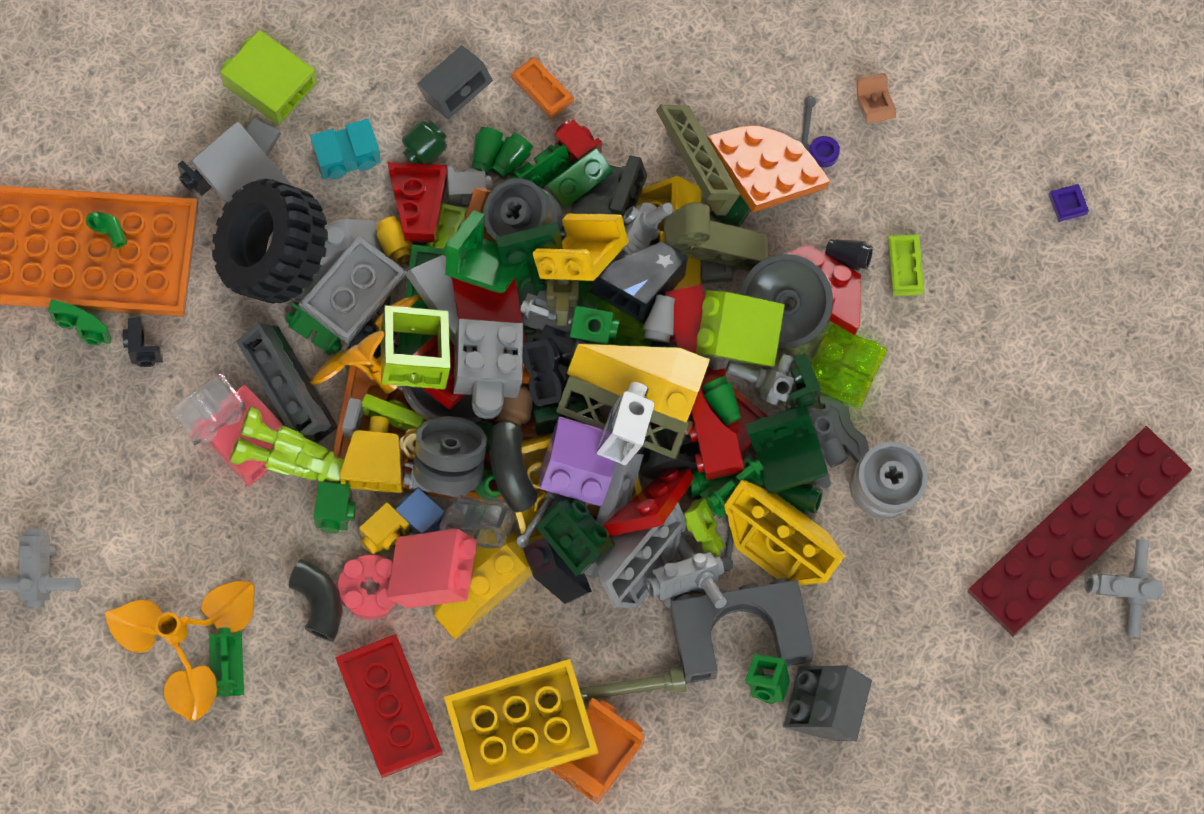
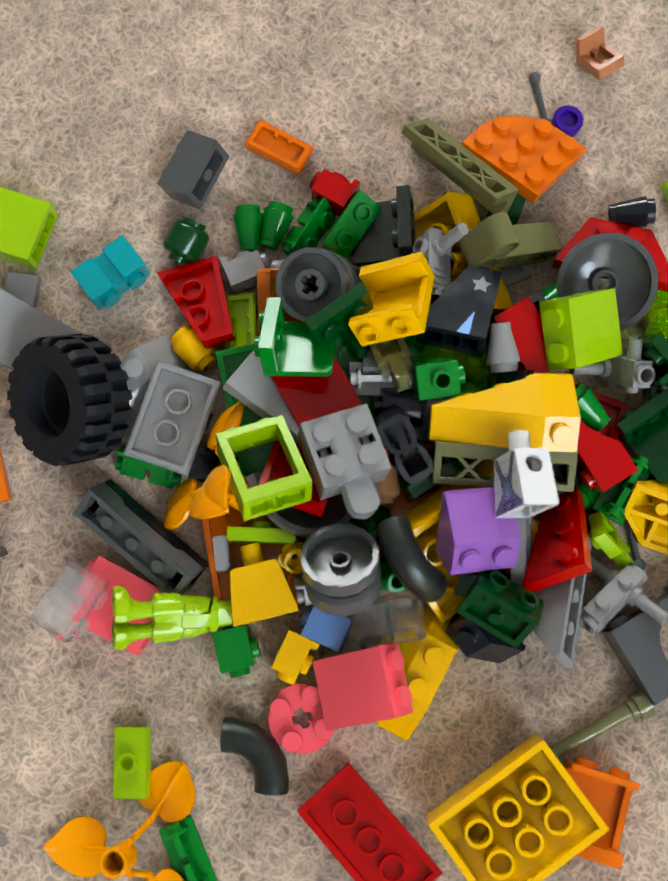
camera: 20 degrees left, 10 degrees up
(207, 570) = (132, 762): none -> lime plate
(523, 539) = (440, 619): light grey hinge -> none

